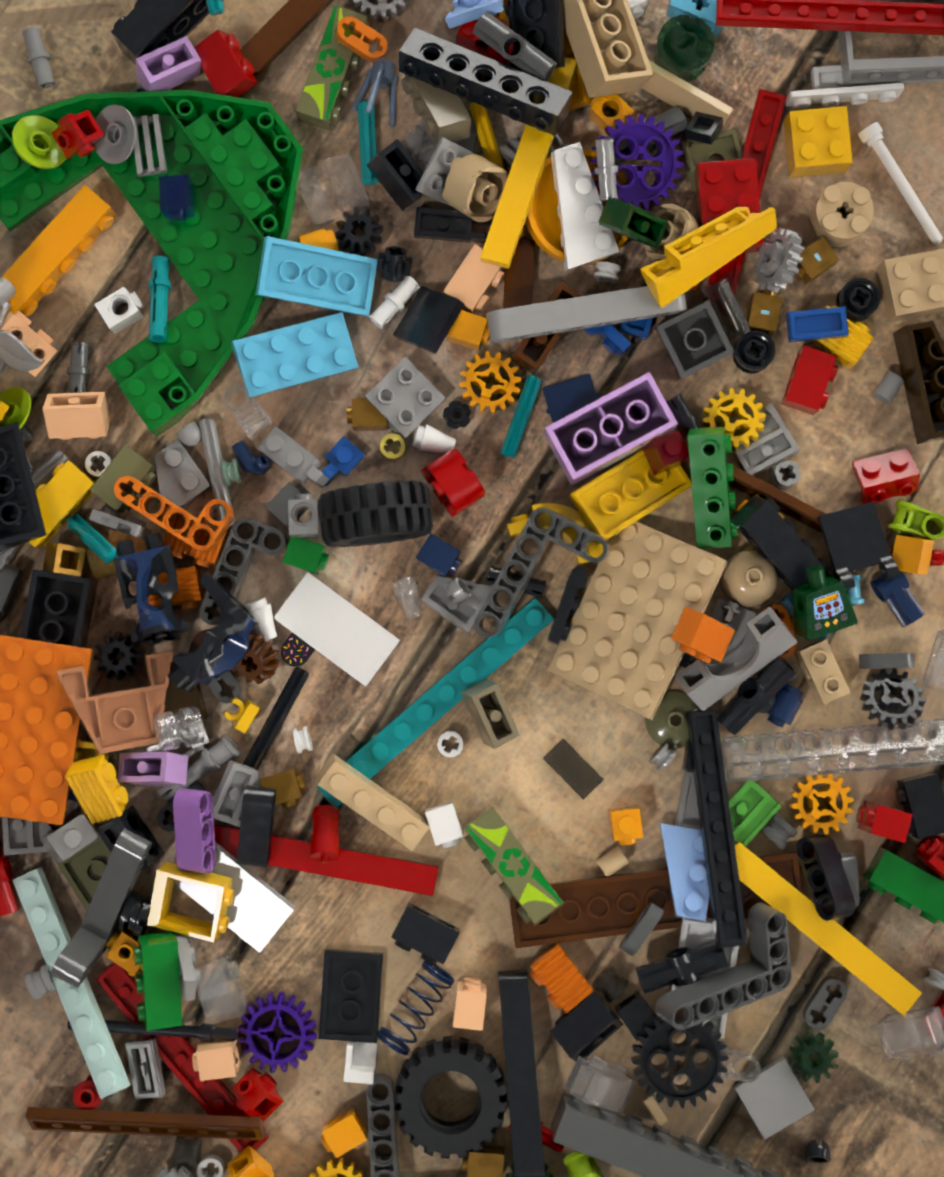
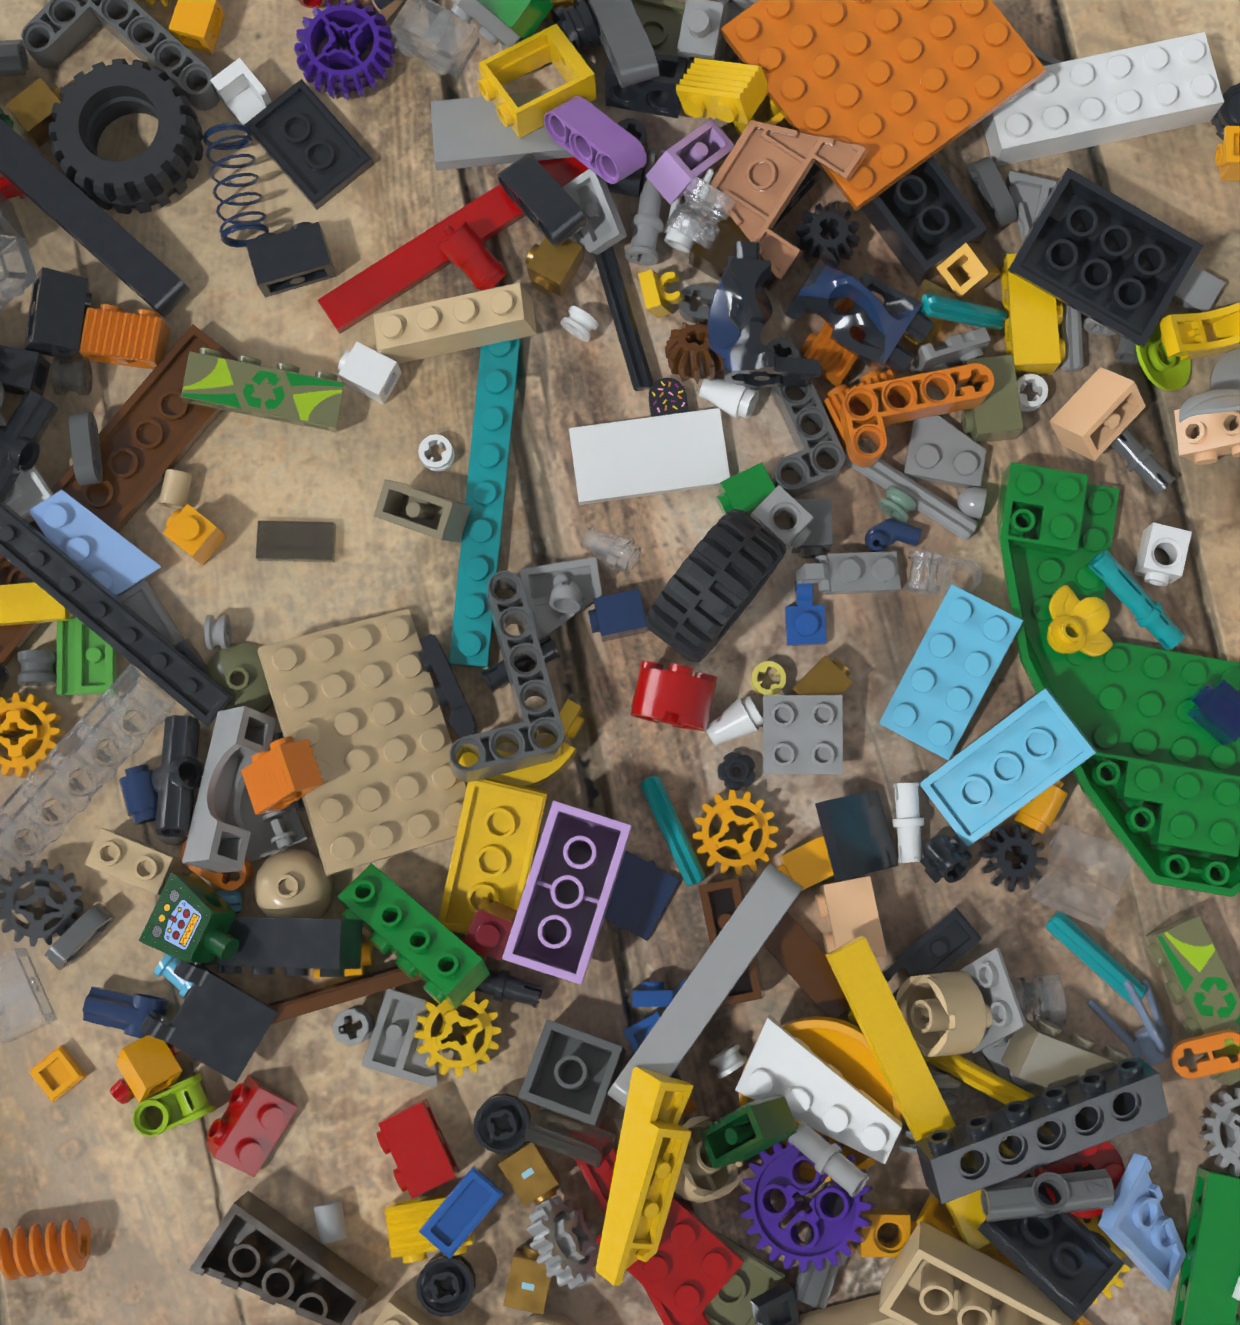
camera: 140 degrees right, 5 degrees down
(199, 314) = (1083, 622): none -> yellow plate
(397, 173) = (1034, 951): black brick -> none
(470, 1004) = (185, 230): light nougat brick -> none

